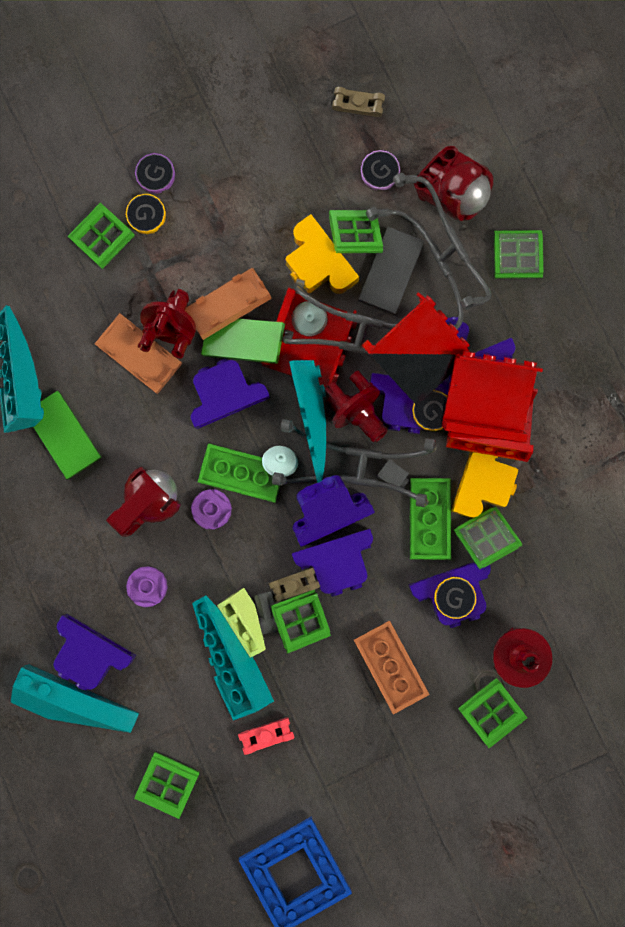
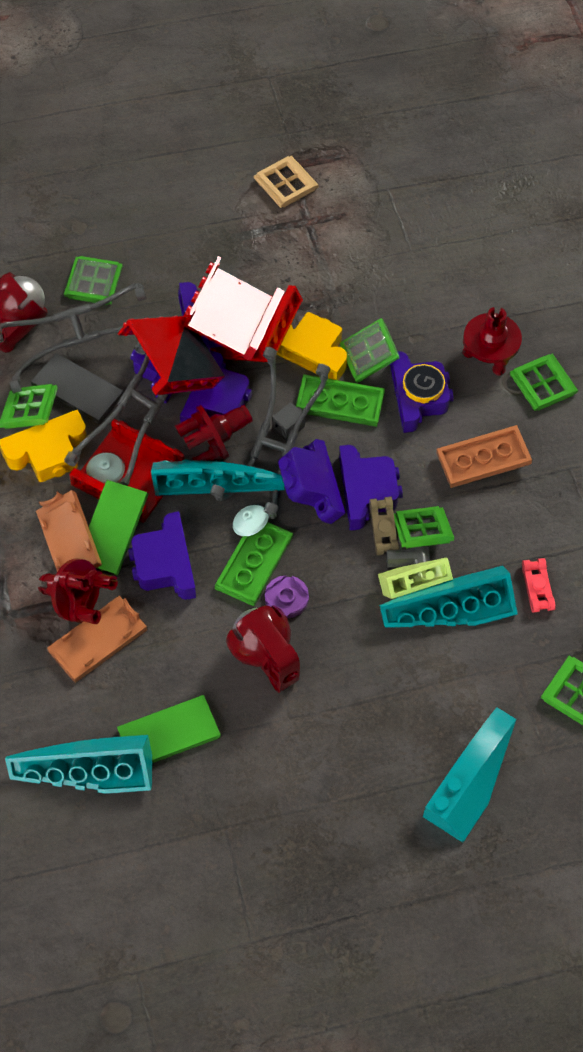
camera: 85 degrees left, 25 degrees down
(87, 654) = (422, 744): dark purple brick -> none
(147, 586) = (358, 675): medium lavender tile -> none
(430, 411) = (236, 369): black tile -> none

